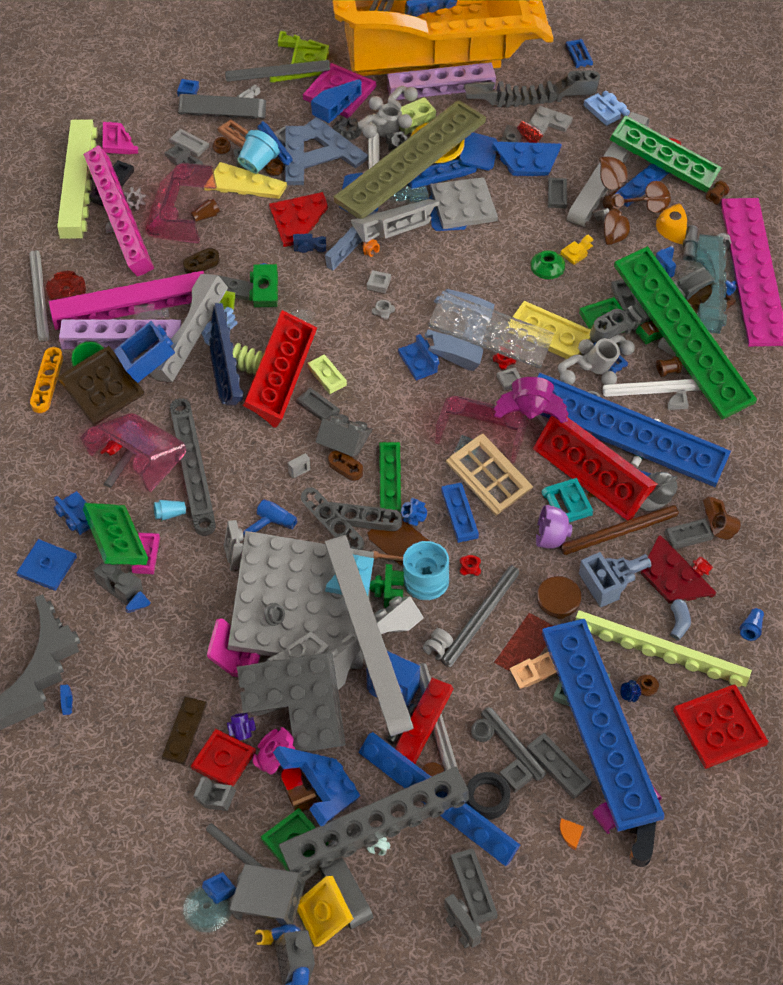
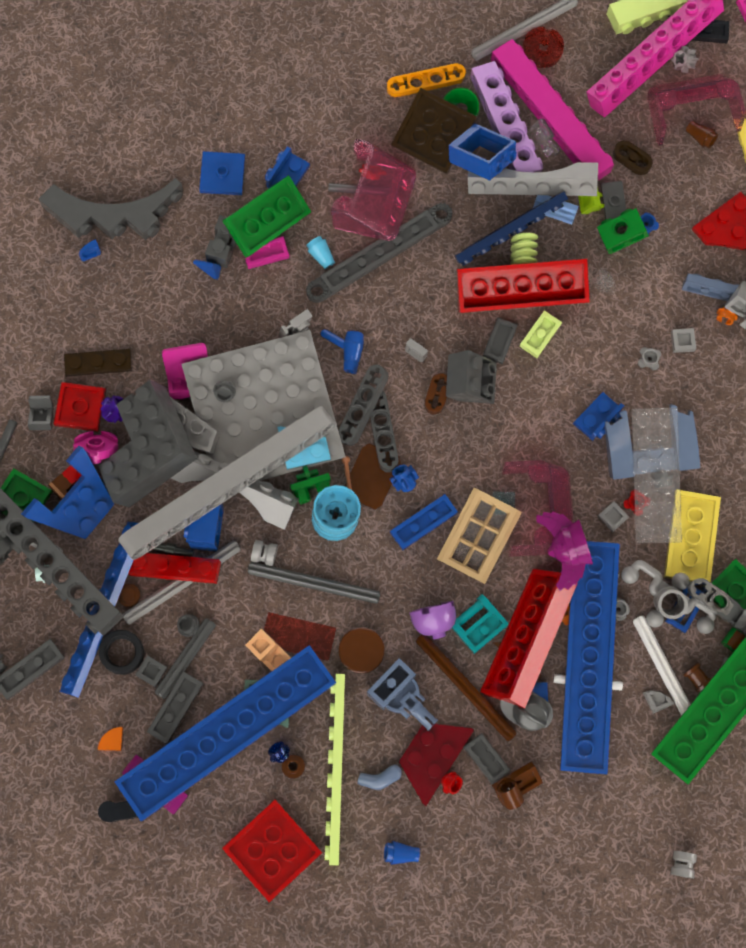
camera: 65 degrees right, 20 degrees up
(306, 242) = (701, 248): dark blue plate -> none
(390, 475) = (441, 441): green tile -> none
(470, 560) = (367, 547): red plate -> none

